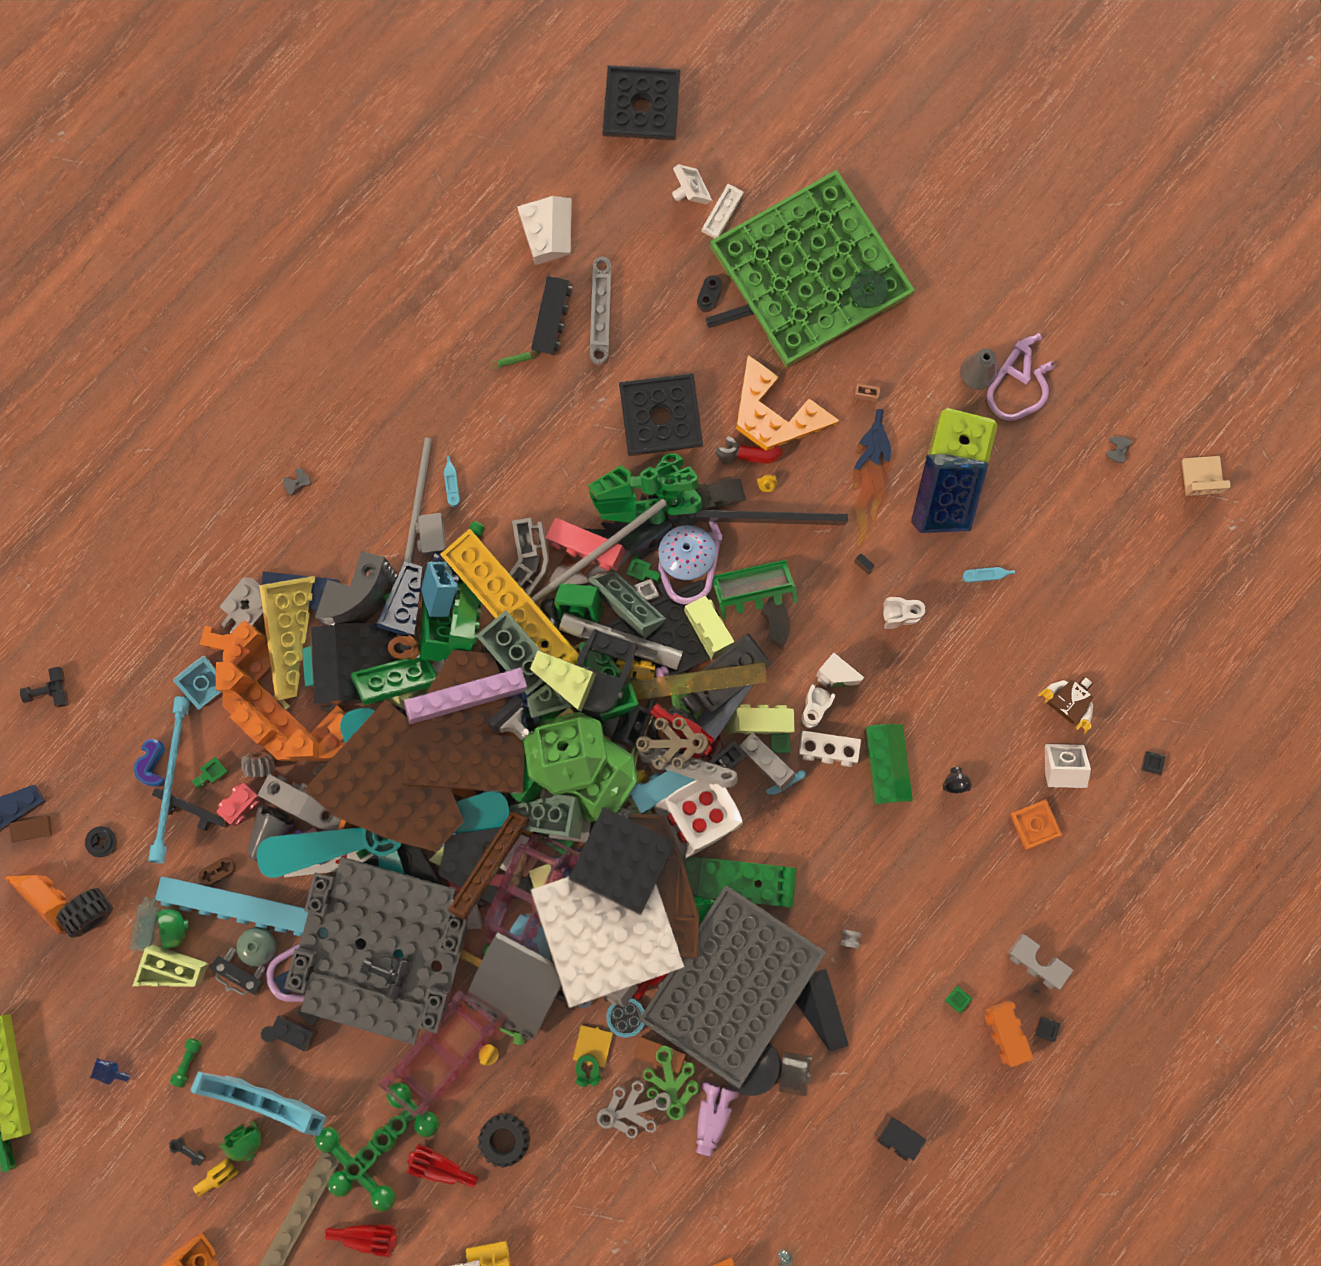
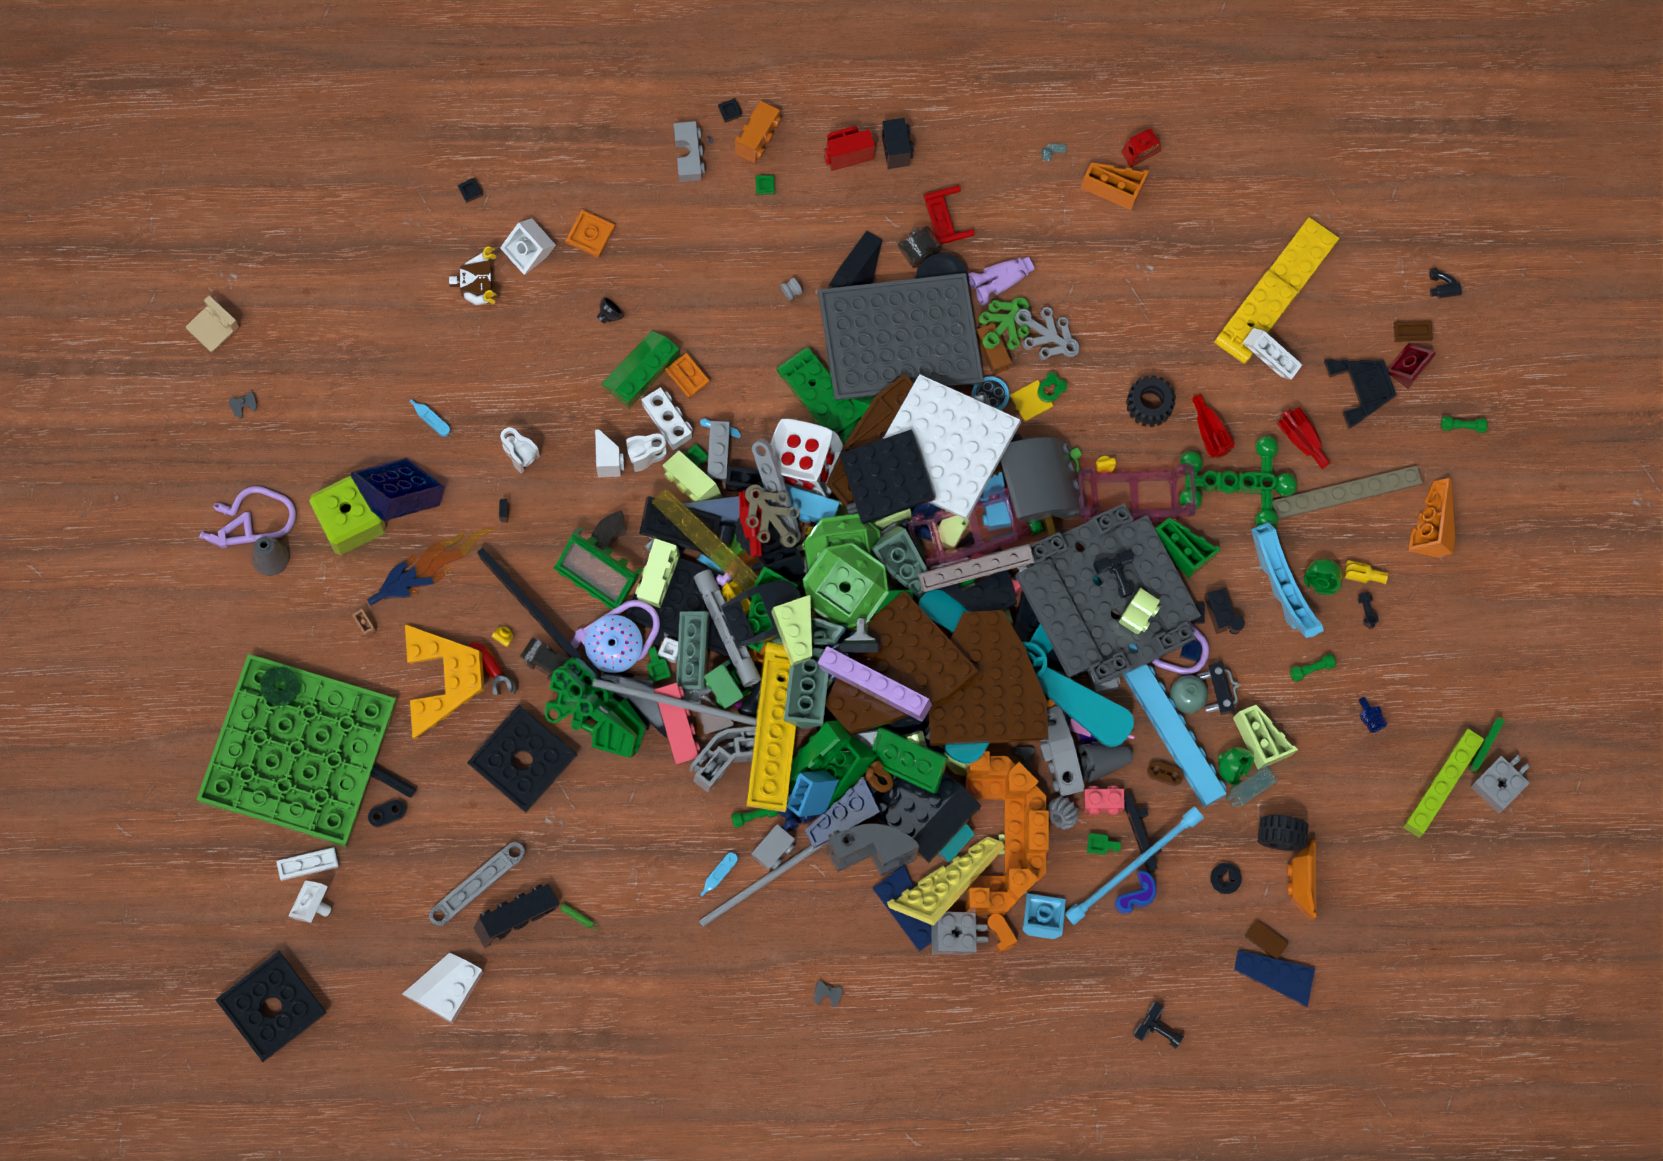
camera: 140 degrees left, 5 degrees down
(342, 961) = (1139, 611): none -> yellowish green brick
(364, 1051) = (1185, 548): none -> green wedge
(807, 1116) = (940, 217): none -> red plate
(850, 794) = (687, 376): none -> orange plate
(930, 1093) = (848, 148): none -> red brick

